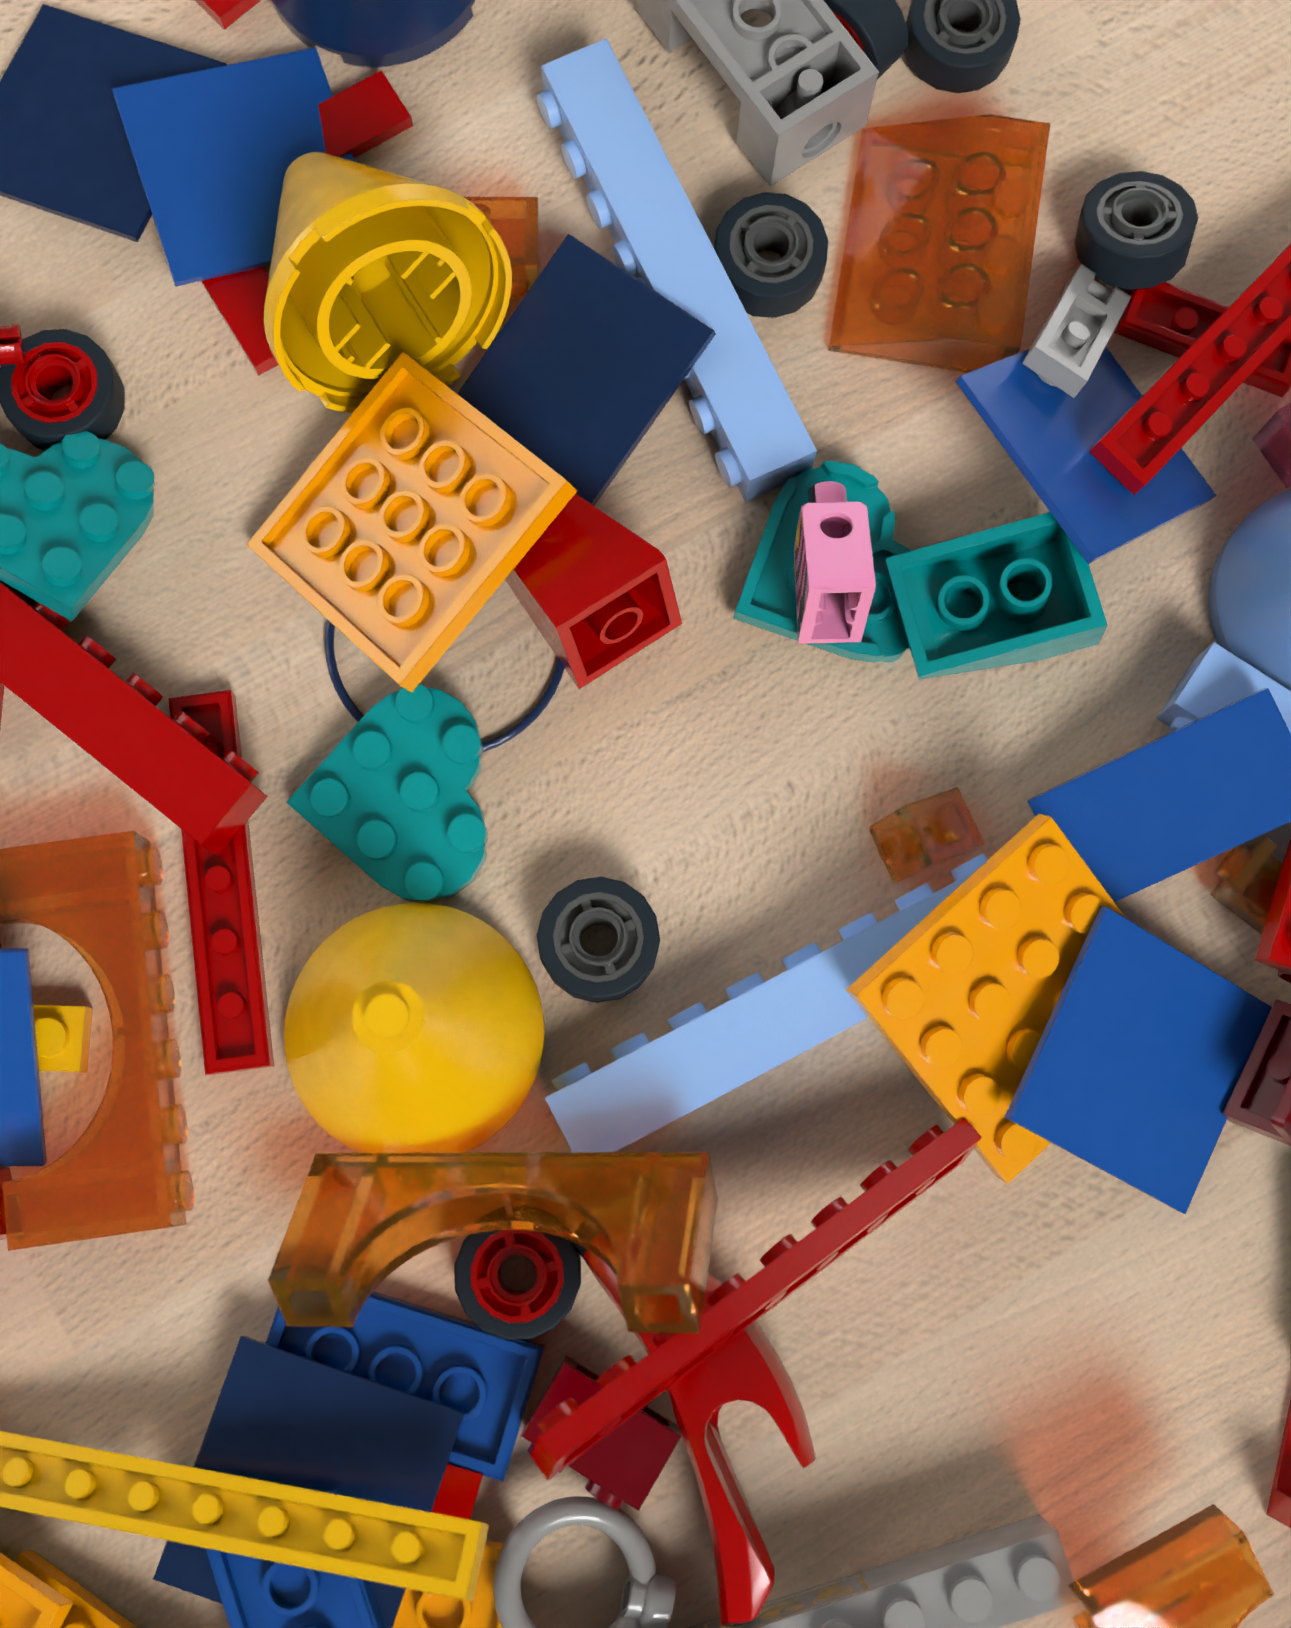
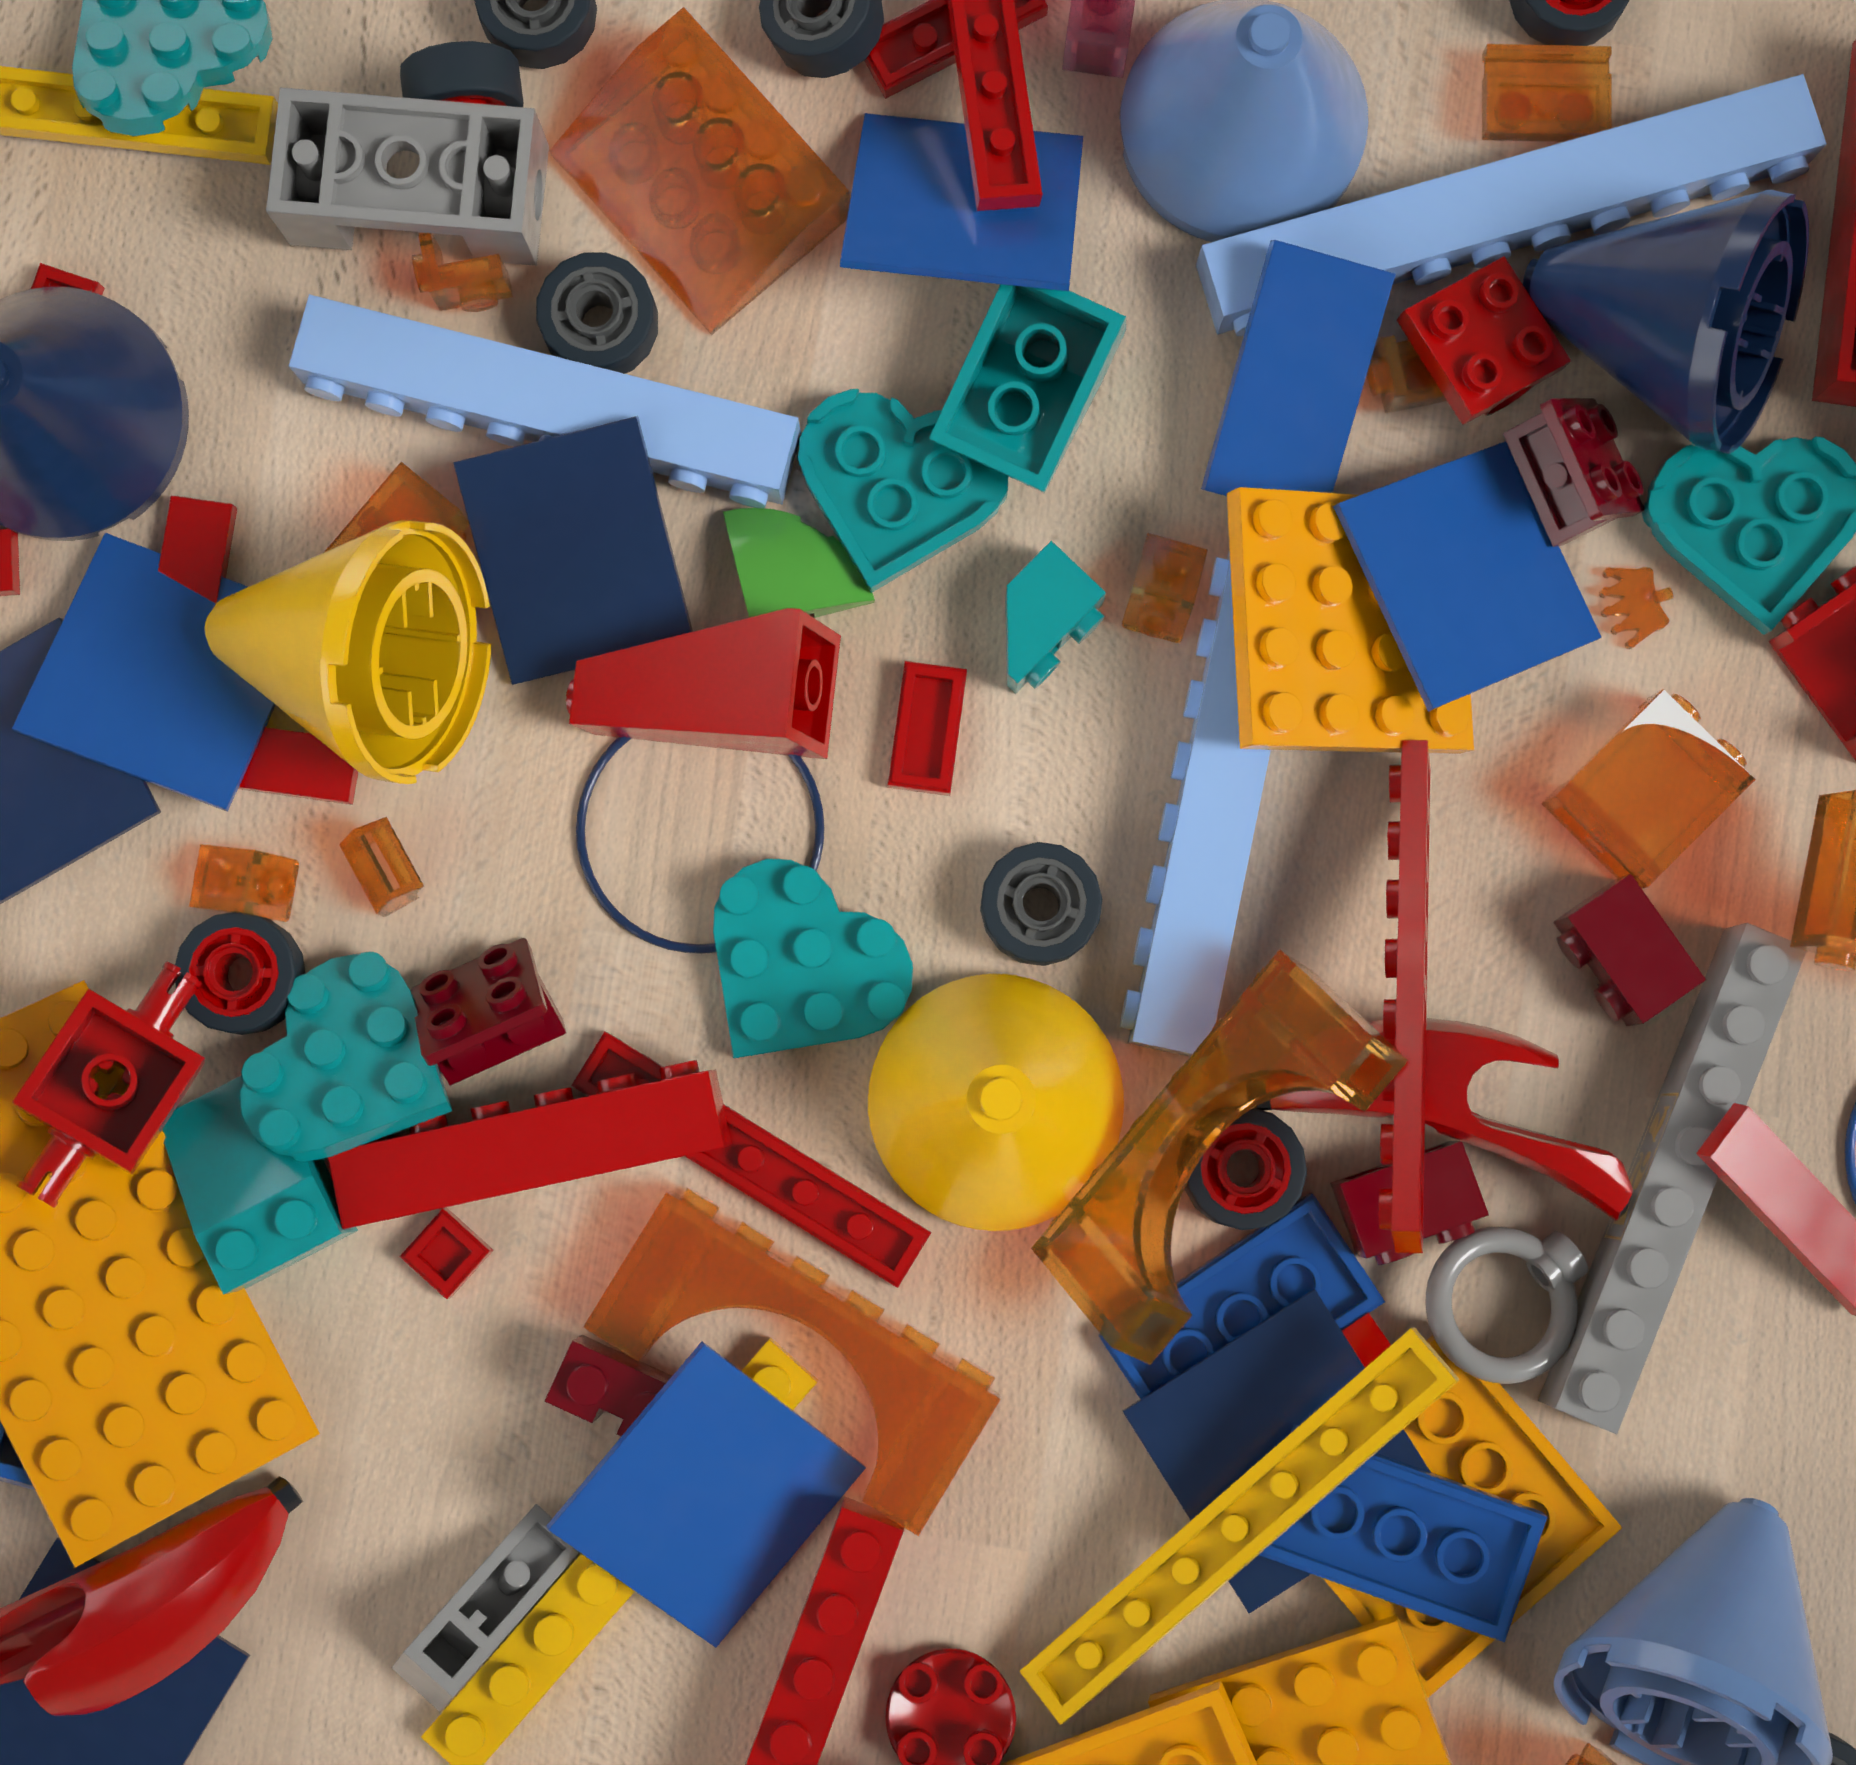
camera: 45 degrees left, 5 degrees up
(134, 343) = (244, 882): none -> clear orange bracket
(170, 589) = (484, 1012): none -> dark red bracket
(222, 396) = (370, 873): none -> clear orange piece
(410, 520) = (593, 780): light orange plate -> none
(664, 744) = (927, 728): none -> red tile
(703, 542) = (791, 565): none -> bright green brick
(709, 141) = (467, 284): none -> clear orange bracket
(828, 756) = (1043, 611): none -> teal slope
(832, 567) = (904, 484): bright pink torso -> none
(952, 1448) = (1629, 952): none -> dark red brick
(1076, 332) = (869, 133): light grey plate -> none
(1098, 1357) = (1650, 789): none -> clear orange panel
(1238, 1219) = (1638, 602): none -> clear orange piece

